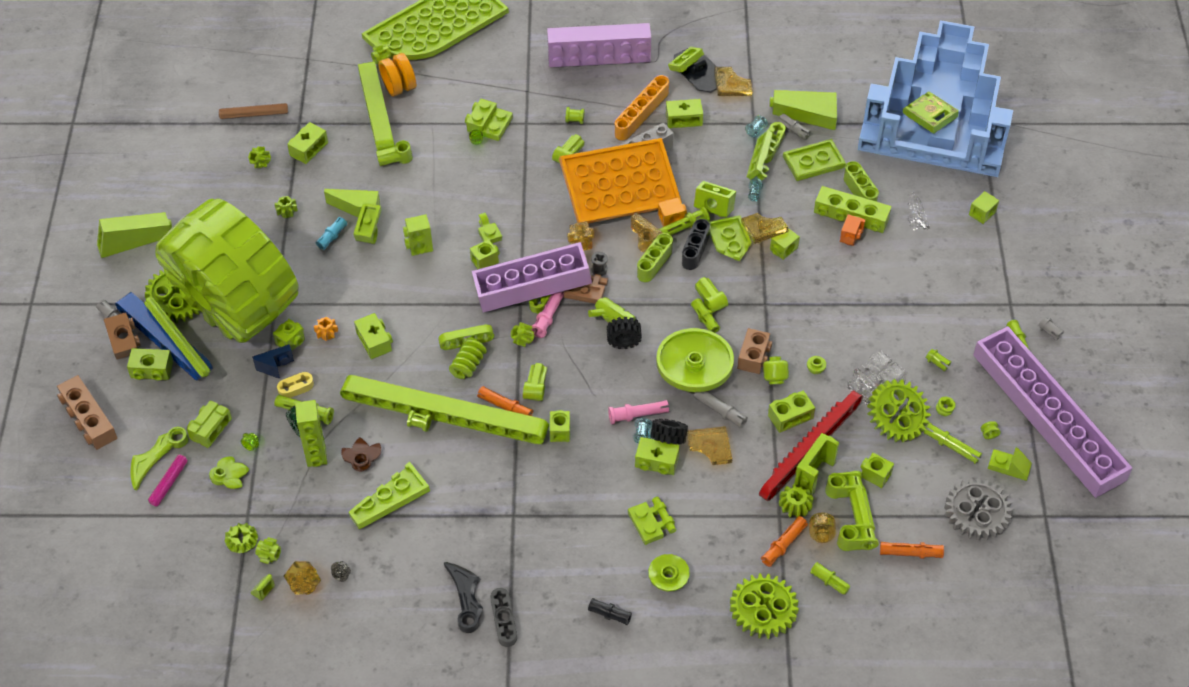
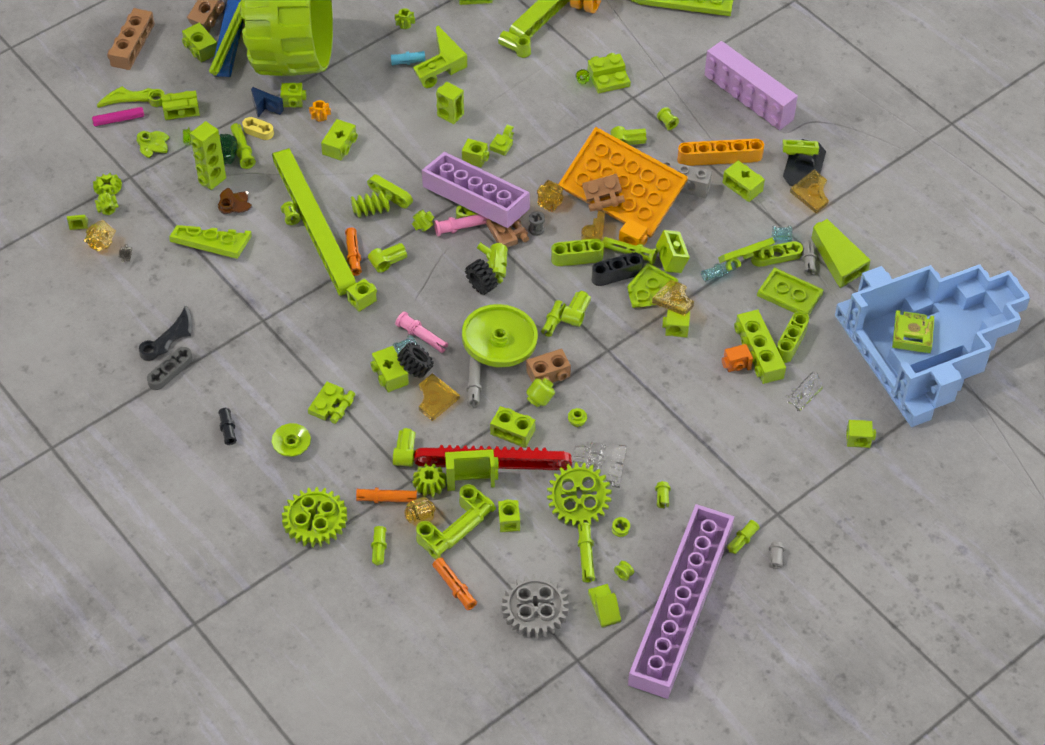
camera: 50 degrees right, 0 degrees up
(614, 197) = (602, 188): none -> medium nougat plate
(752, 501) = (404, 452): none -> lime piece

